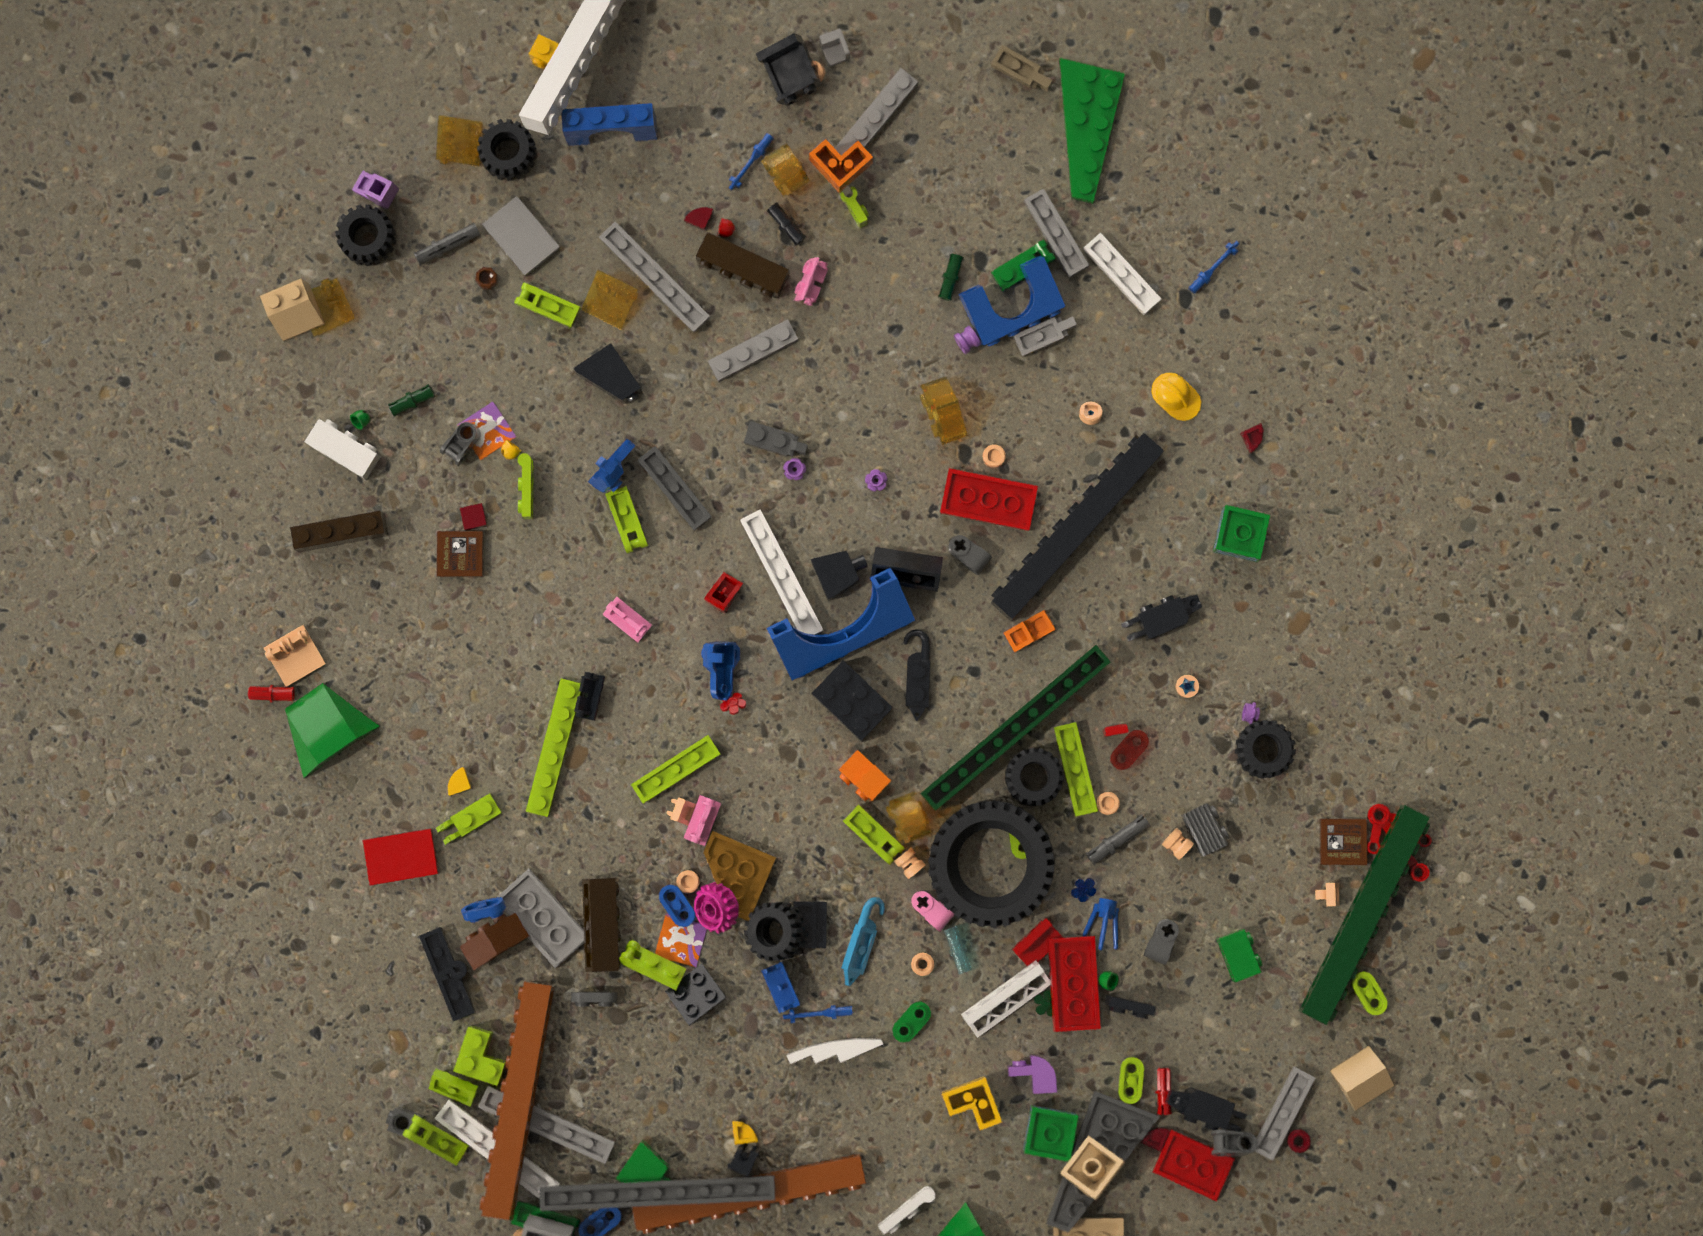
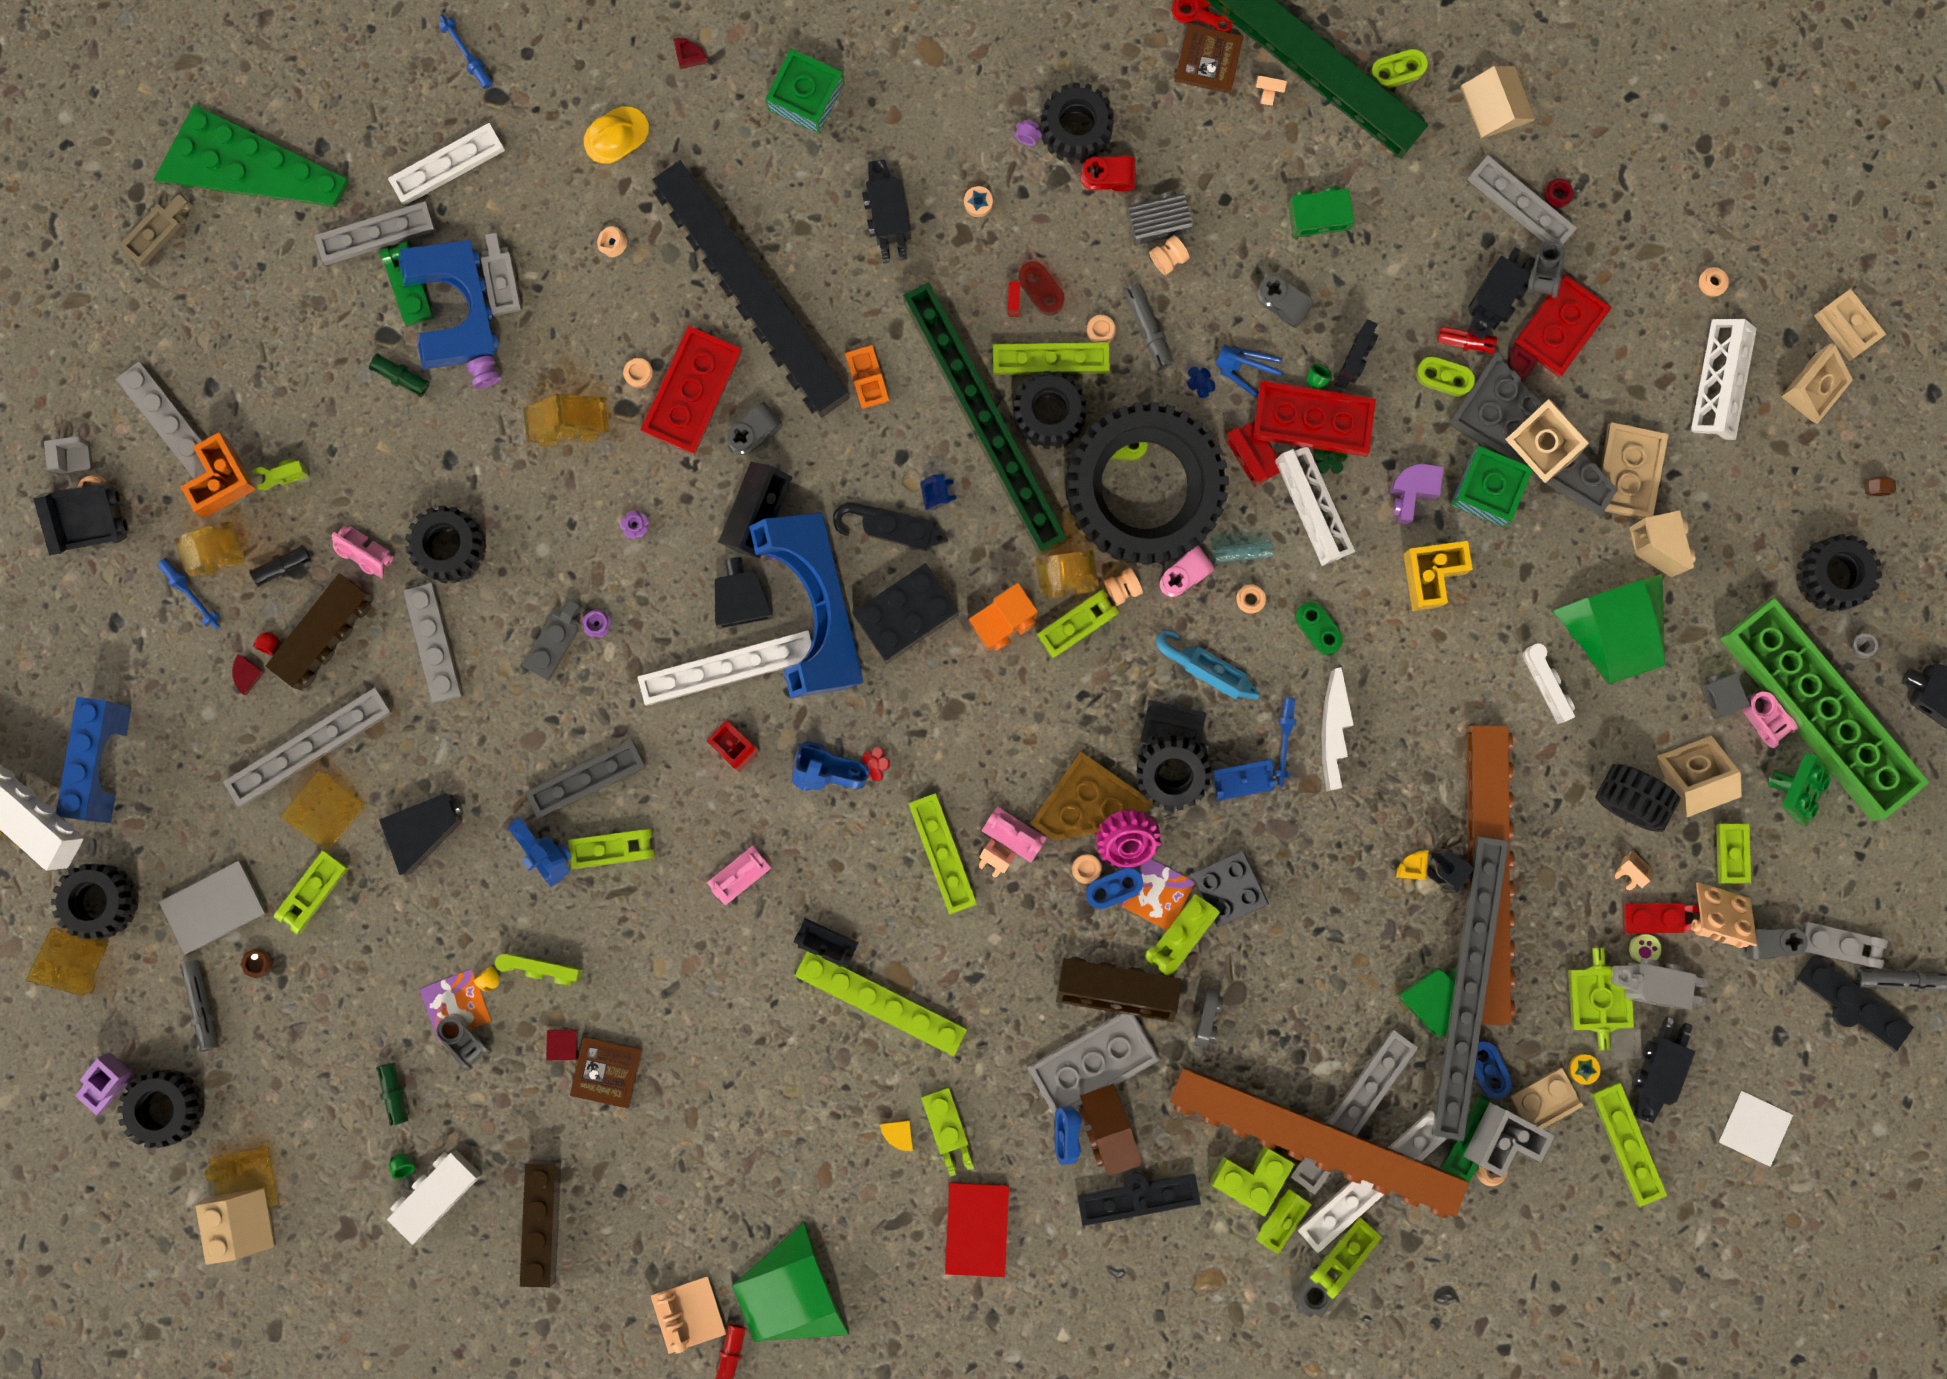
camera: 80 degrees left, 0 degrees up
(823, 324) = (424, 533): none -> black tyre
(950, 703) = (935, 491): none -> clear blue tile
(1233, 787) = (1114, 173): none -> red piece

